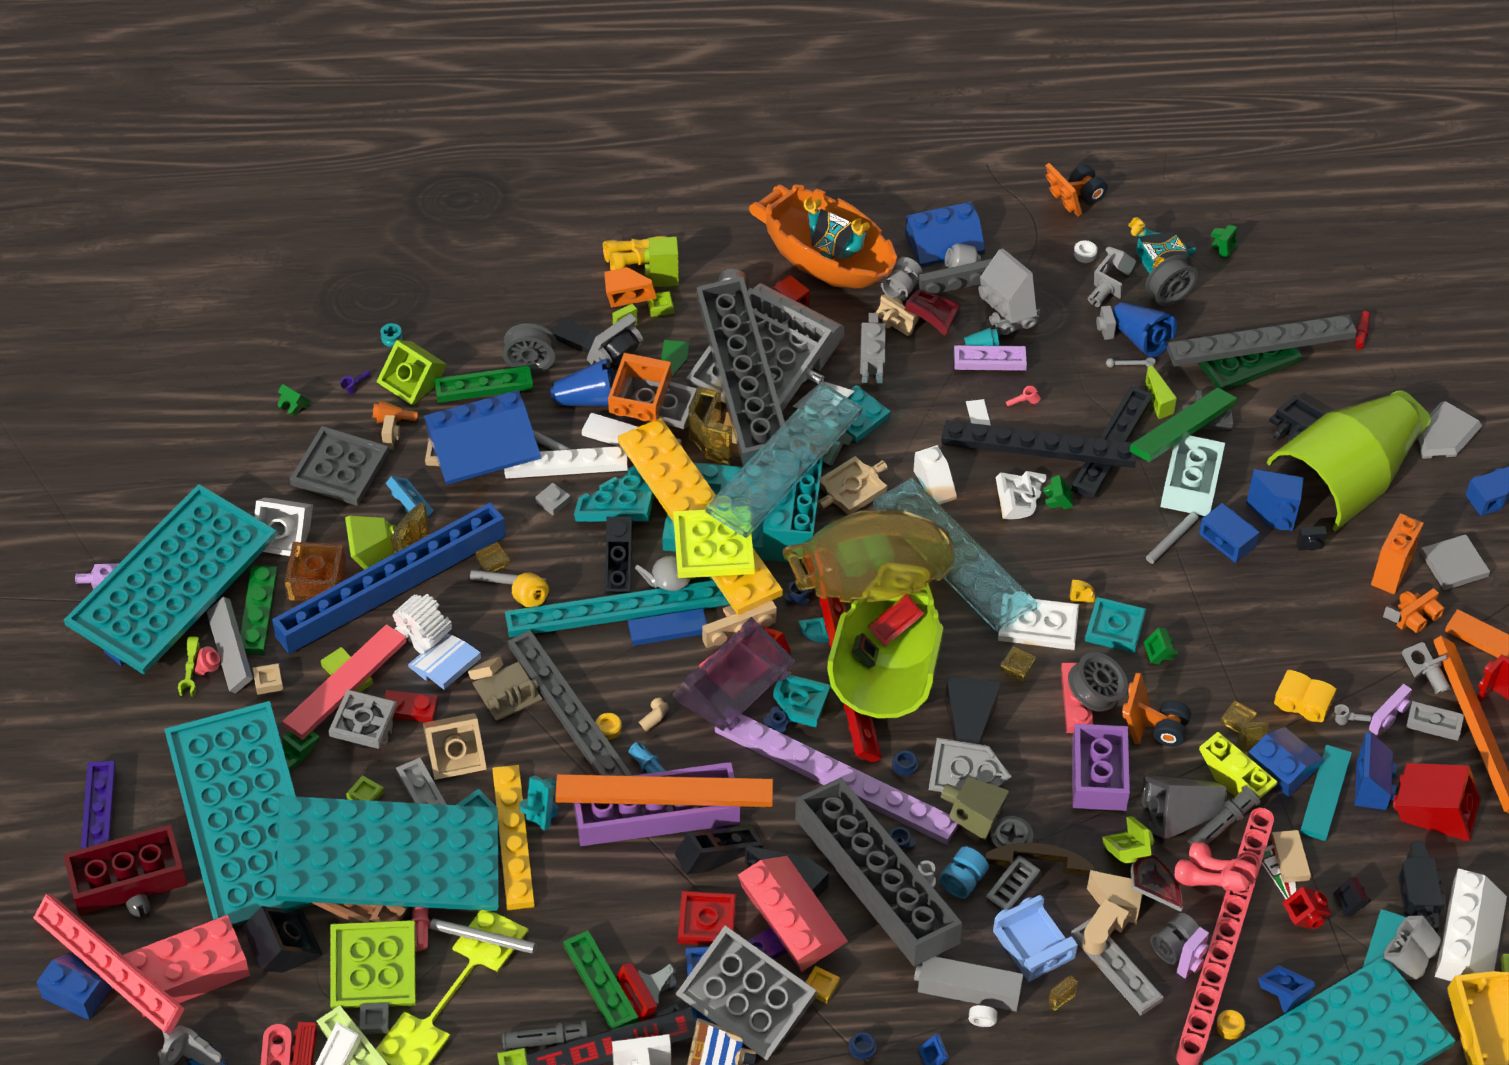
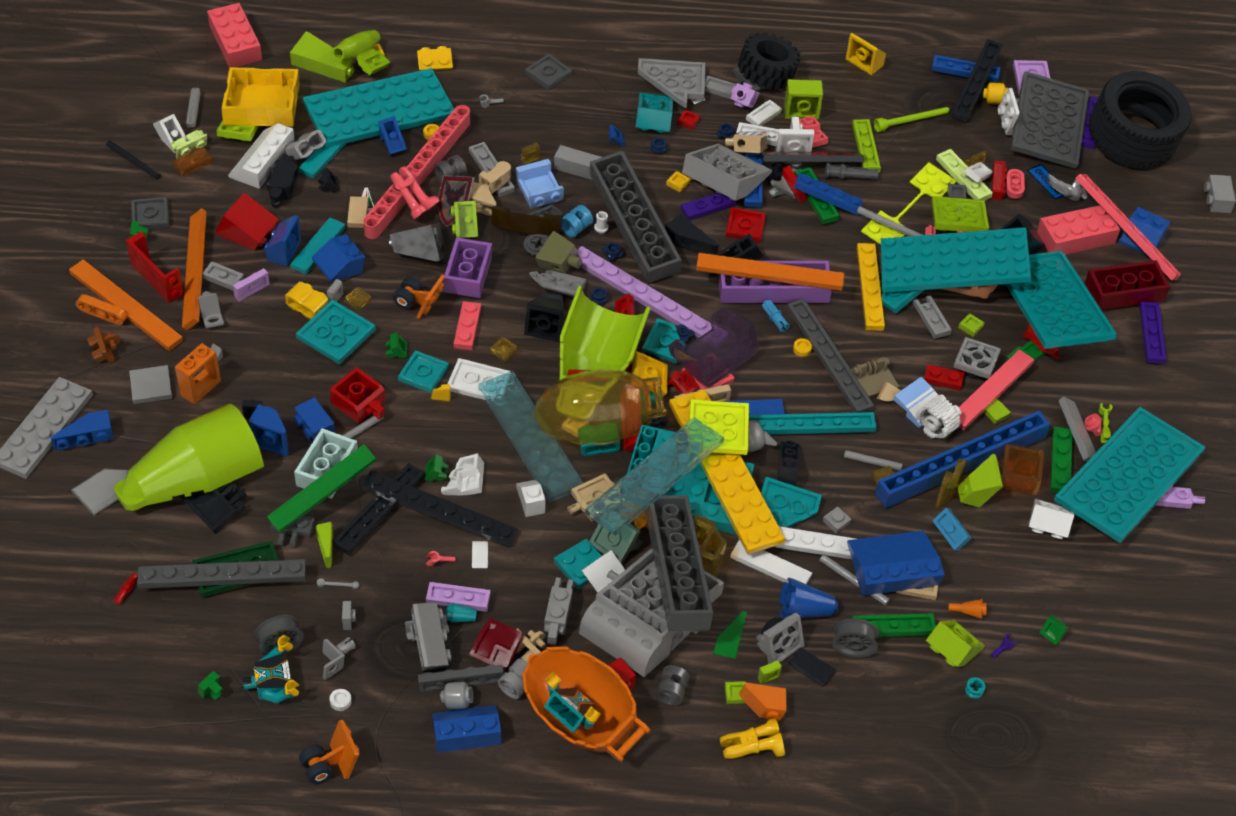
camera: 175 degrees left, 0 degrees up
(267, 679) = (1048, 404): tan plate -> none
(339, 465) = (1010, 565): dark grey plate -> none
(390, 431) = (970, 587): tan plate -> none
(454, 746) = (912, 342): tan slope -> none
(530, 590) = (857, 437): yellow head -> none
(539, 804) = (853, 288): teal hips -> none
(582, 971) = (828, 193): none -> blue plate
(635, 366) = (760, 581): orange window -> none
(655, 716) = (767, 346): tan arm -> none
(662, 261) = (732, 713): lime brick -> none
(675, 404) = (749, 575): light grey slope -> none
(791, 910) = (694, 200): coral slope -> none
(812, 643) = (649, 368): none -> yellow tile
(865, 650) = (614, 359): black tile -> none
(983, 1016) = (583, 145): white tile -> none
(1098, 681) = (452, 320): dark grey wheel -> none
(1121, 260) = (313, 678): light grey slope -> none
(1145, 327) = (319, 600): blue cone -> none
(1184, 563) = (358, 396): none -> red hinge
(1193, 953) = (444, 149): lavender plate -> none
(1232, 811) = (389, 227): dark grey pin -> none
(1233, 768) = (376, 256): neon yellow slope -> none
(1249, 659) = (335, 331): none -> teal plate
(1251, 734) = (353, 282): clear yellow slope -> none
(1272, 711) = (335, 291): none -> light grey tile
(1307, 908) = (362, 173): red brick -> none
(1346, 715) = (285, 288): light grey hand -> none
(1415, 606) = (187, 347): orange hips -> none

